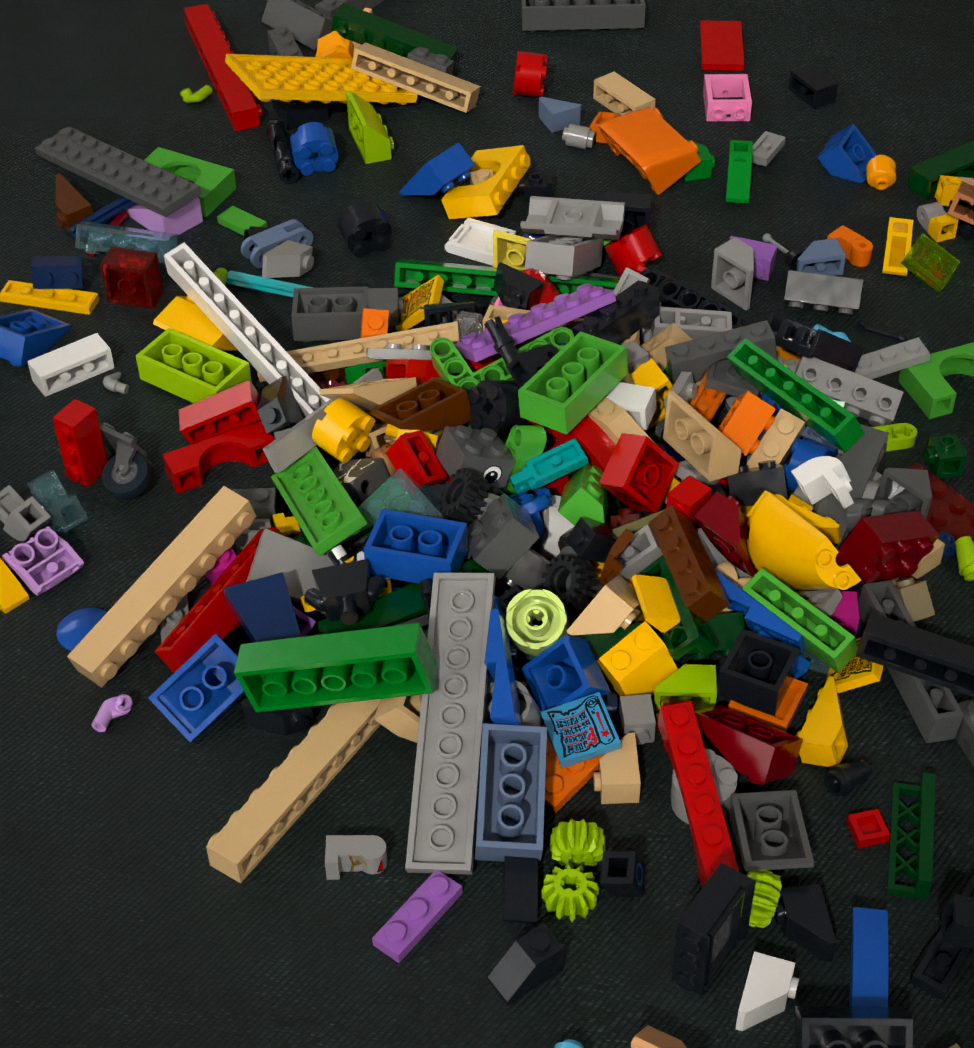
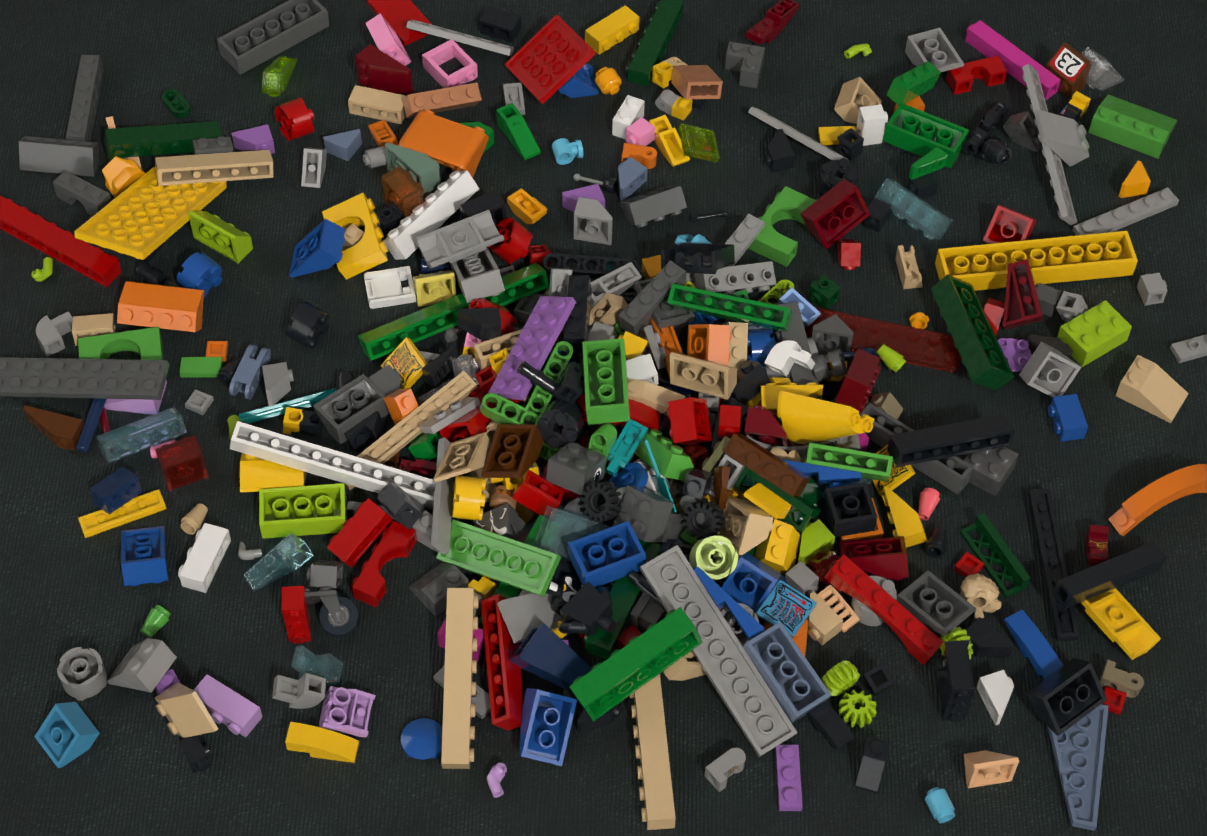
camera: 40 degrees left, 10 degrees up
(105, 328) = (194, 519): none -> tan cone
(134, 402) = (280, 561): none -> clear light blue slope
(146, 136) = (50, 332): none -> light grey brick
(150, 429) = (325, 574): none -> dark grey brick
(185, 145) = (92, 326): none -> tan hinge
(210, 247) = (199, 402): none -> light grey tile
(253, 156) = (161, 306): none -> orange slope
(272, 216) = (217, 349): none -> orange tile
(276, 304) = (301, 422): none -> leg
(324, 335) = (368, 429): none -> black slope
(441, 26) = (176, 103): none -> dark green plate
(483, 75) = (254, 139): none -> medium lavender slope
(511, 117) = (313, 167): none -> light grey slope
(552, 40) = (277, 76): none -> clear neon green slope
(553, 513) = (659, 482): none -> teal piece
(568, 168) = (402, 190): none -> clear orange brick
(587, 190) = (431, 214): none -> white brick
(600, 157) = (419, 165): none -> sand green slope
(649, 71) = (382, 72): none -> dark red slope
(653, 754) = (841, 604): none -> light nougat slope
(680, 50) = (387, 39): none -> bright pink window
(686, 236) = (526, 207): none -> light orange slope
(689, 114) = (442, 99): none -> nougat brick
(760, 79) = (460, 37): none -> light grey tile
(775, 208) = (566, 151): none -> medium azure piece
(829, 123) = (550, 59): none -> red plate
(845, 861) = (981, 593): none -> tan animal
(871, 209) = (628, 113): none -> white brick
(871, 225) = (640, 132): none -> bright pink brick
(876, 728) = (928, 501): none -> coral cone
(898, 451) = (808, 312): none -> light blue slope
(928, 134) = (612, 29): none -> yellow brick

